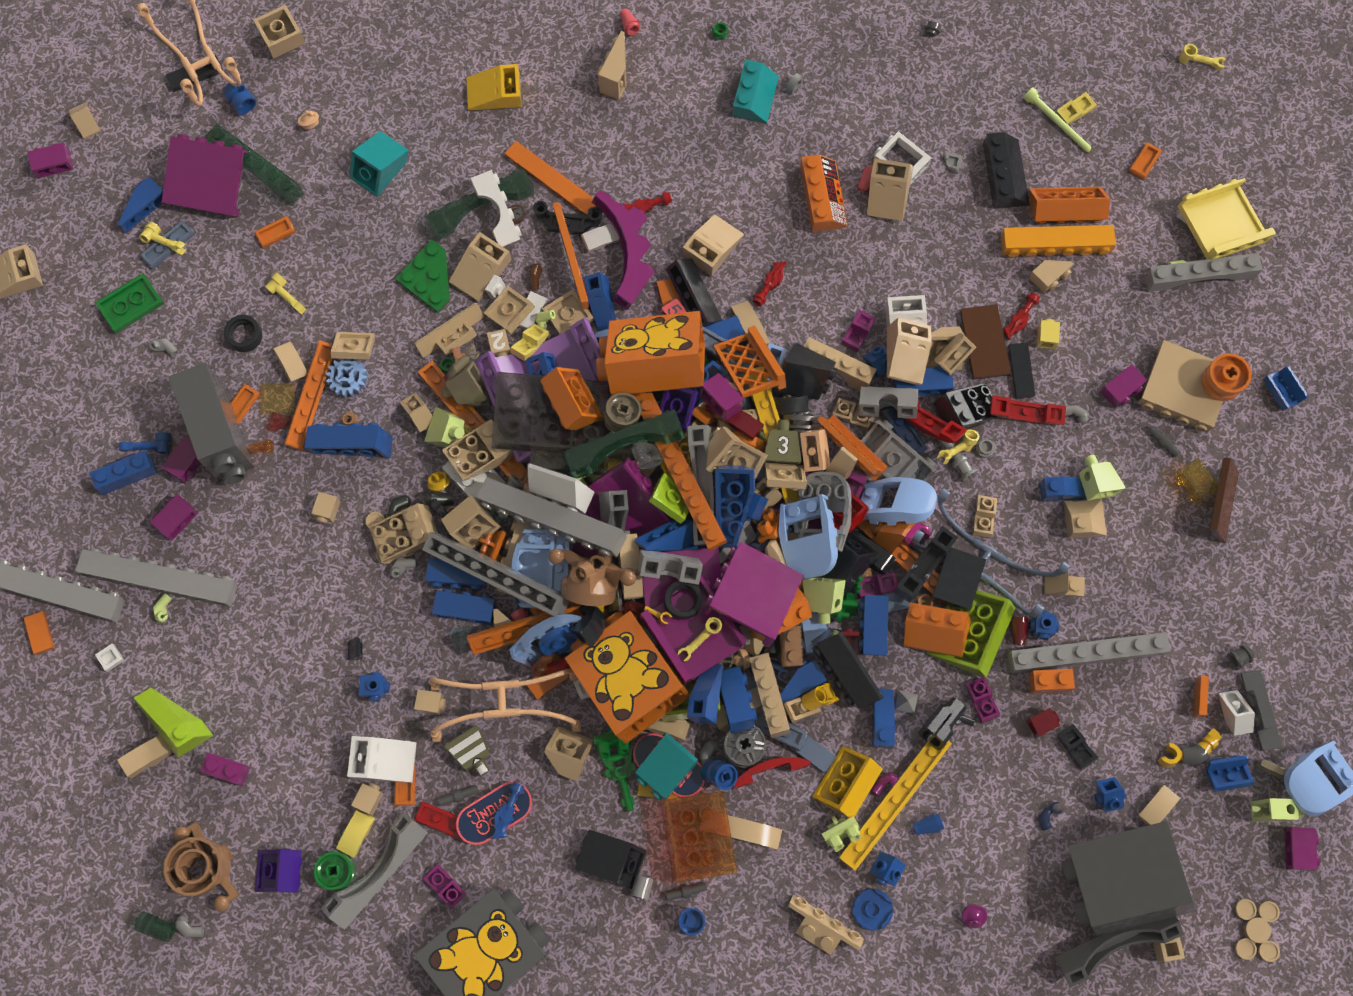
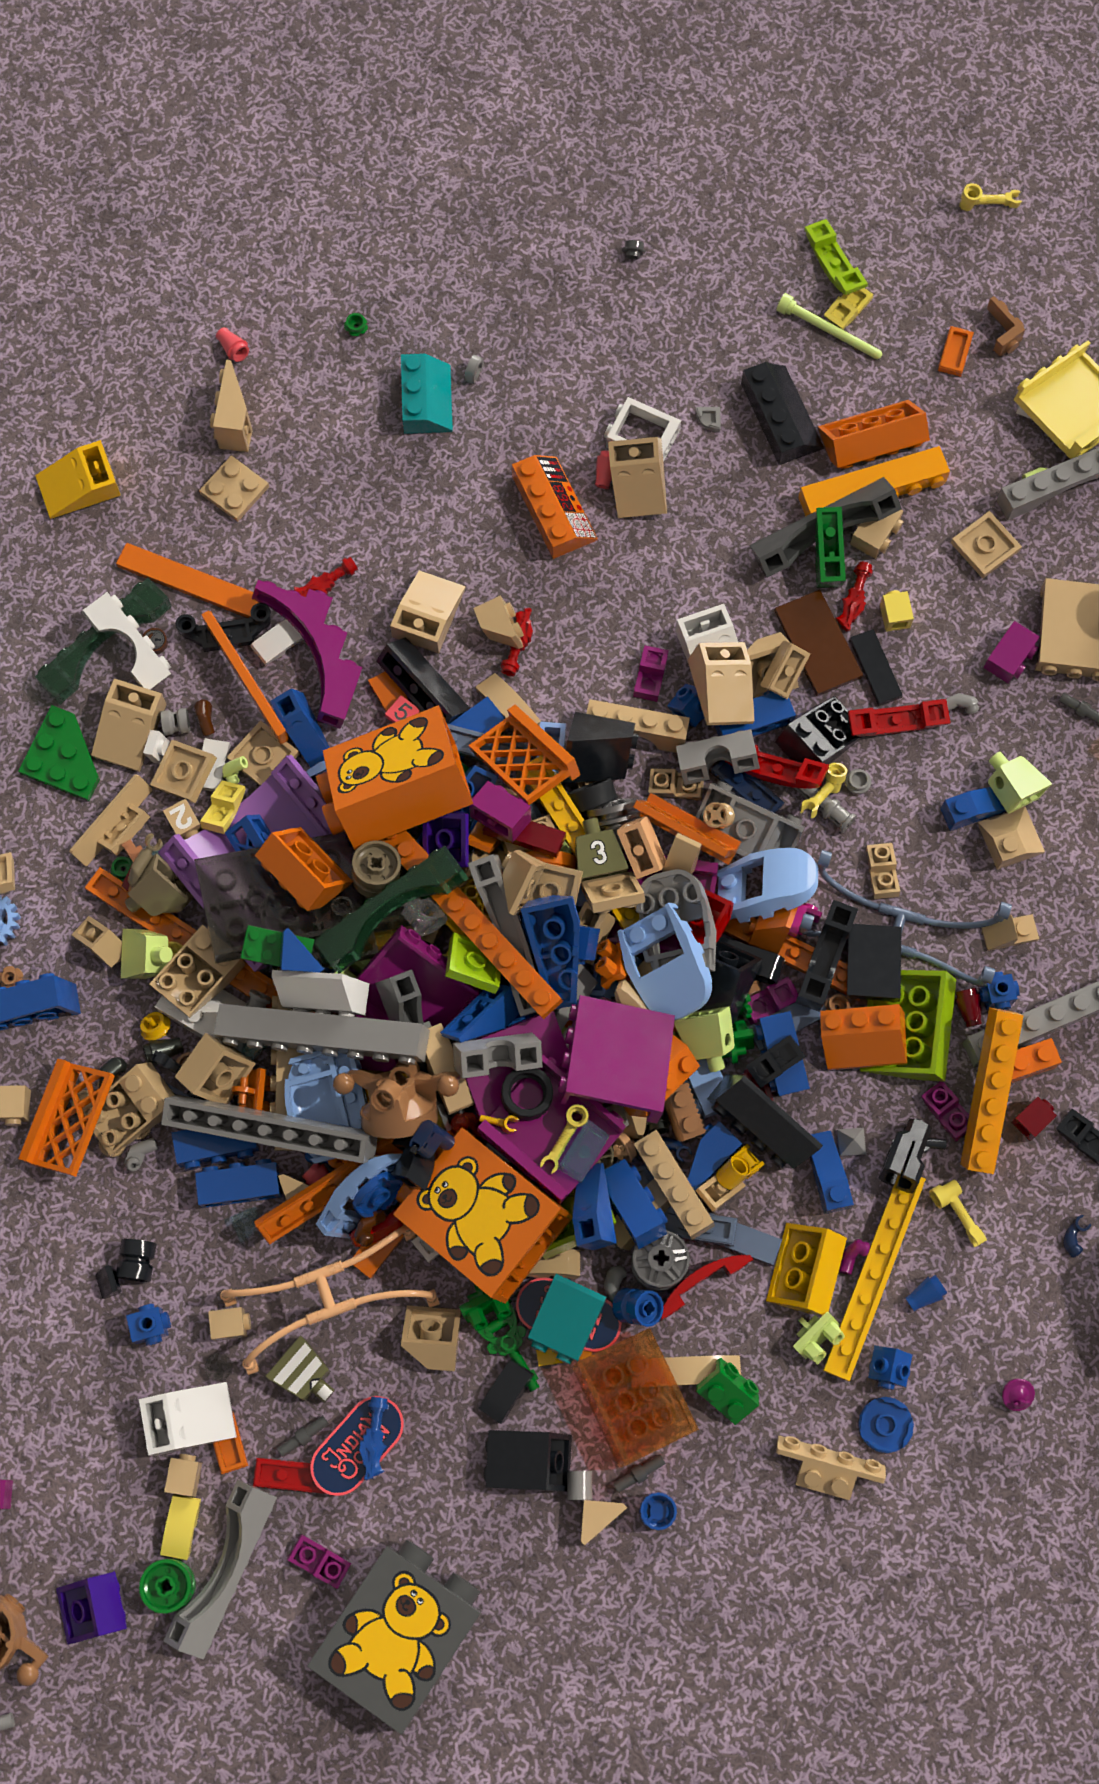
camera: 15 degrees left, 0 degrees up
(351, 520) = (52, 1113): none -> orange fence
(378, 639) = (136, 1260): none -> black wheel
(513, 274) = (175, 721): none -> light grey wheel
(537, 449) = (265, 945): none -> green piece
(548, 458) = (295, 955): none -> blue slope
(601, 123) = (234, 488): none -> tan plate
(604, 611) = (429, 1138): none -> dark blue piece
(609, 805) = (505, 1391): none -> black slope
(647, 913) = (597, 1516): none -> tan slope
(711, 652) = (583, 1151): none -> clear light blue slope
(759, 265) = (498, 623): none -> tan slope
(767, 852) = (729, 1392): none -> green bracket
(867, 628) = (775, 1061): none -> black slope
(872, 443) = (713, 817): none -> tan wheel
(965, 759) = (948, 1195): none -> light yellow brick
(1012, 276) = (829, 548): none -> green slope
(1017, 693) = (991, 1090): none -> light orange brick
(1046, 252) = (864, 505): none -> dark grey arch
(1074, 71) = (832, 259): none -> lime slope
(1127, 304) = (986, 544): none -> tan plate
(1193, 155) = (1015, 329): none -> medium nougat bracket

